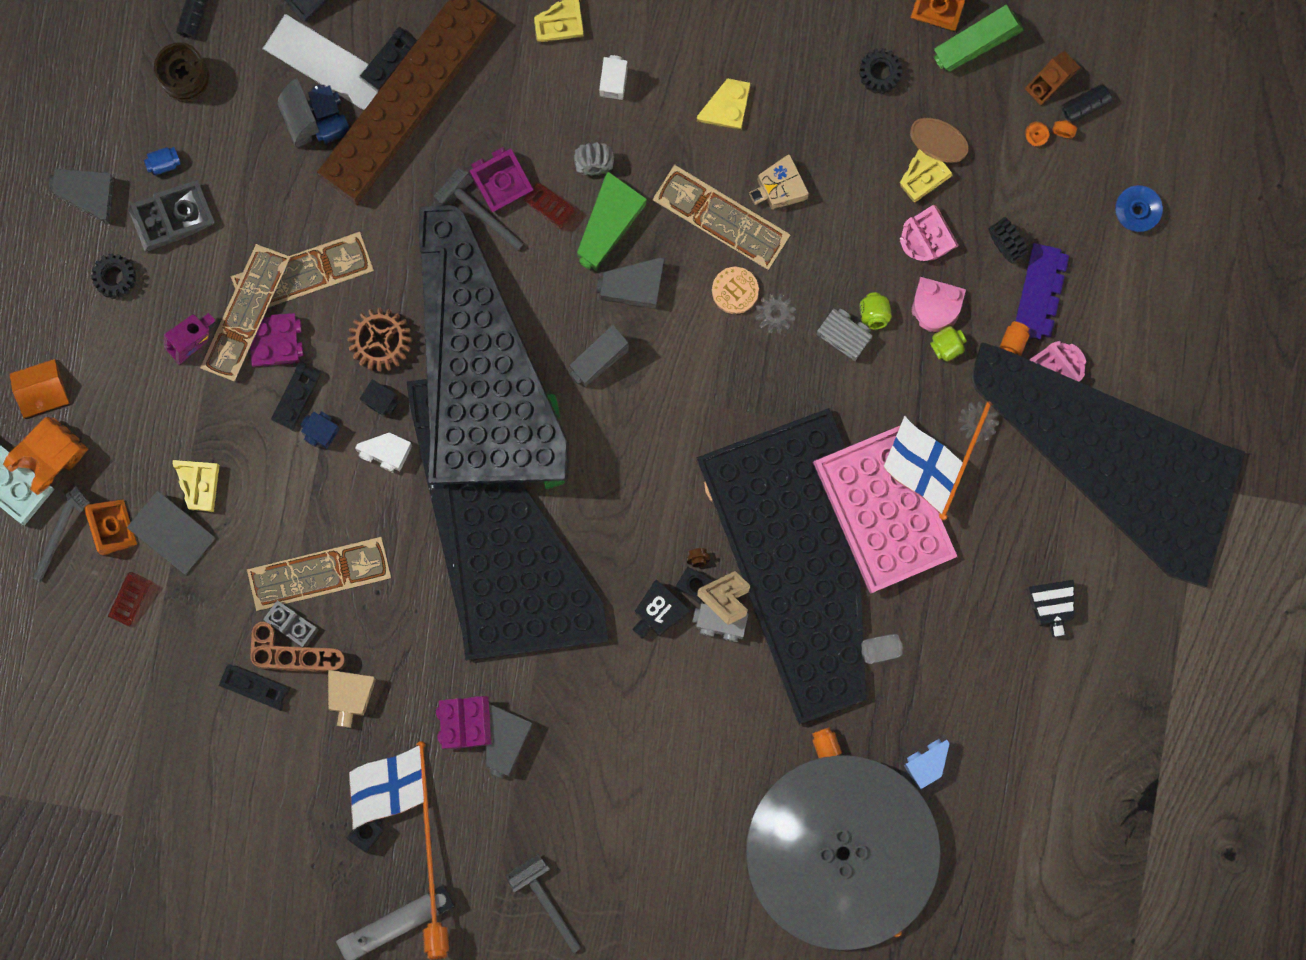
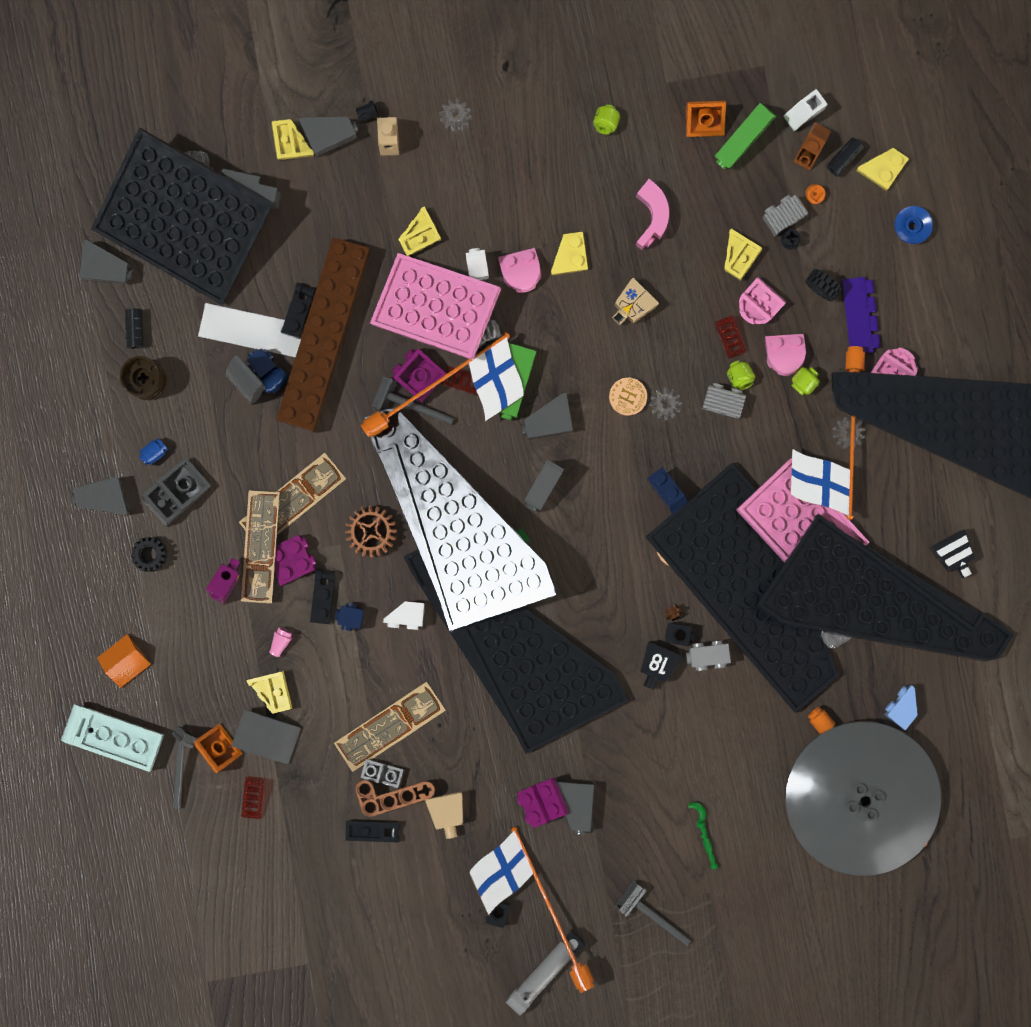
camera: 20 degrees left, 5 degrees up
(46, 452) = (149, 710): orange piece -> none
(228, 428) = (280, 641): none -> bright pink cone
(379, 398) = (387, 577): black brick -> none
(548, 107) = (435, 306): none -> bright pink plate
(585, 211) = (493, 379): none -> flag
(641, 815) = (706, 841): none -> green piece
(663, 102) = (521, 270): none -> bright pink slope
(721, 217) = (597, 343): sticker -> none
(722, 596) = (703, 637): tan plate -> none
(741, 412) = (667, 490): none -> dark blue brick
(848, 80) = (657, 203): none -> bright pink arch
(879, 242) = (731, 320): none -> clear red slope
(880, 84) = (687, 179): black tyre -> none
(919, 605) = (857, 593): none -> black wing
(939, 140) = (742, 225): medium nougat piece -> none
(982, 176) = (786, 242): none -> black bush
(992, 144) = (785, 214): none -> light grey brick
(1059, 33) = (805, 110): none -> white slope
(1064, 129) = (835, 182): orange tile -> none
(1128, 132) = (884, 168): none -> light yellow wing

